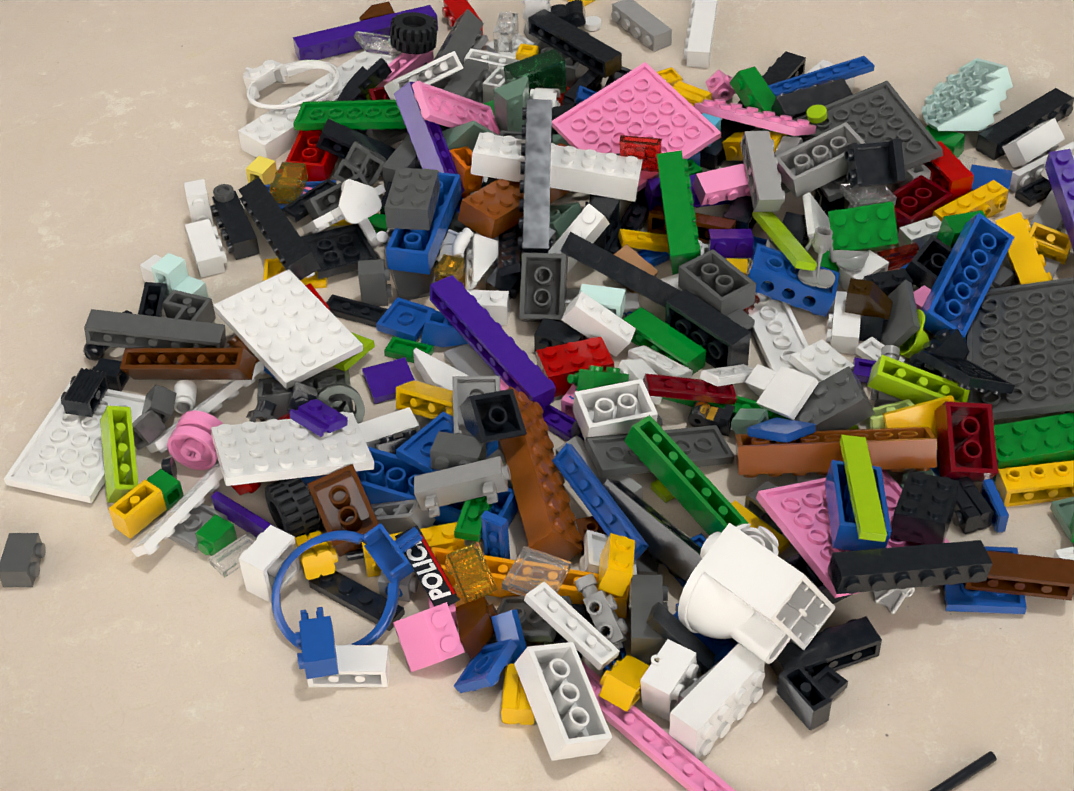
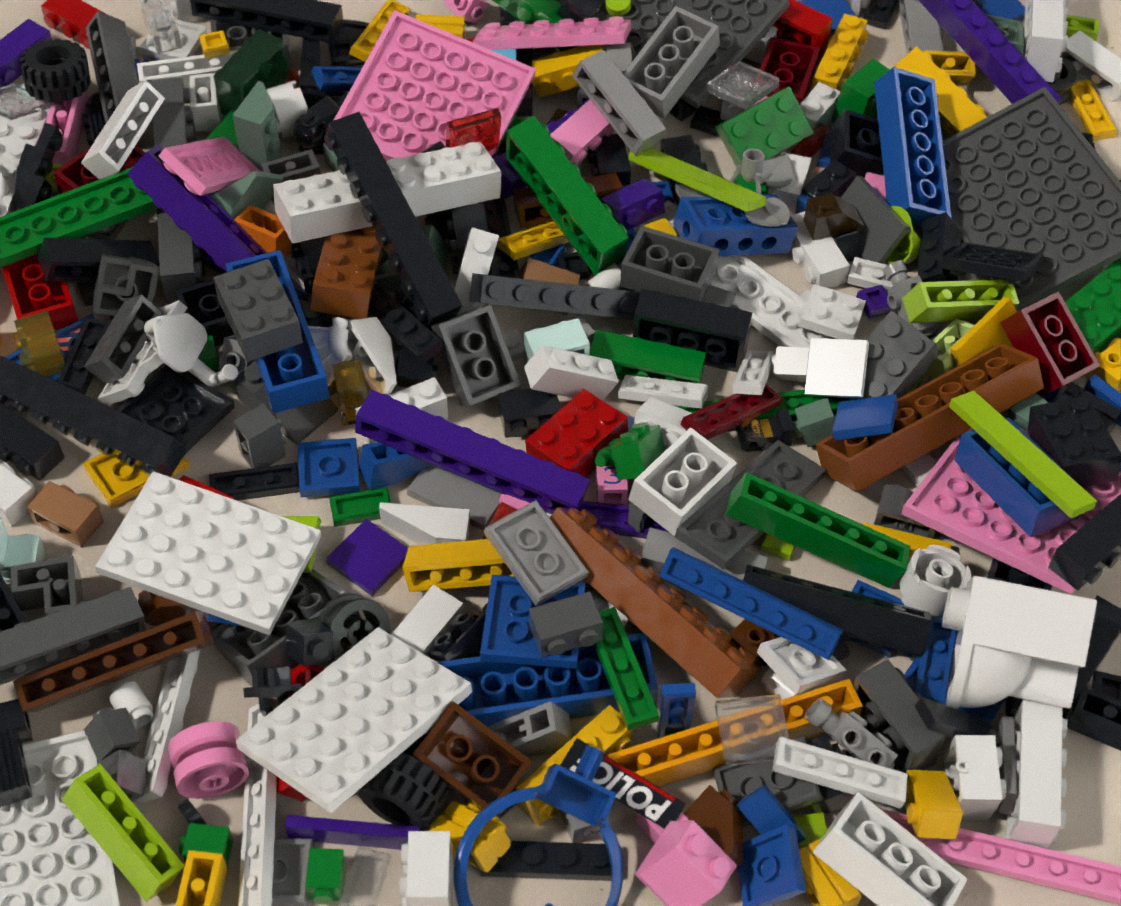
camera: 35 degrees left, 10 degrees up
(231, 277) = (65, 513): none -> medium nougat brick
(318, 417) = (357, 659): dark purple plate -> none
(461, 484) = (598, 661): light grey brick -> none
(470, 572) = (683, 765): clear yellow brick -> none
(493, 416) = (581, 561): black slope -> none
(616, 564) = (835, 673): yellow brick -> none
(663, 266) = (573, 263): none -> black plate
(814, 215) = (705, 142): white tile -> none
(875, 163) = (739, 45): black panel -> none

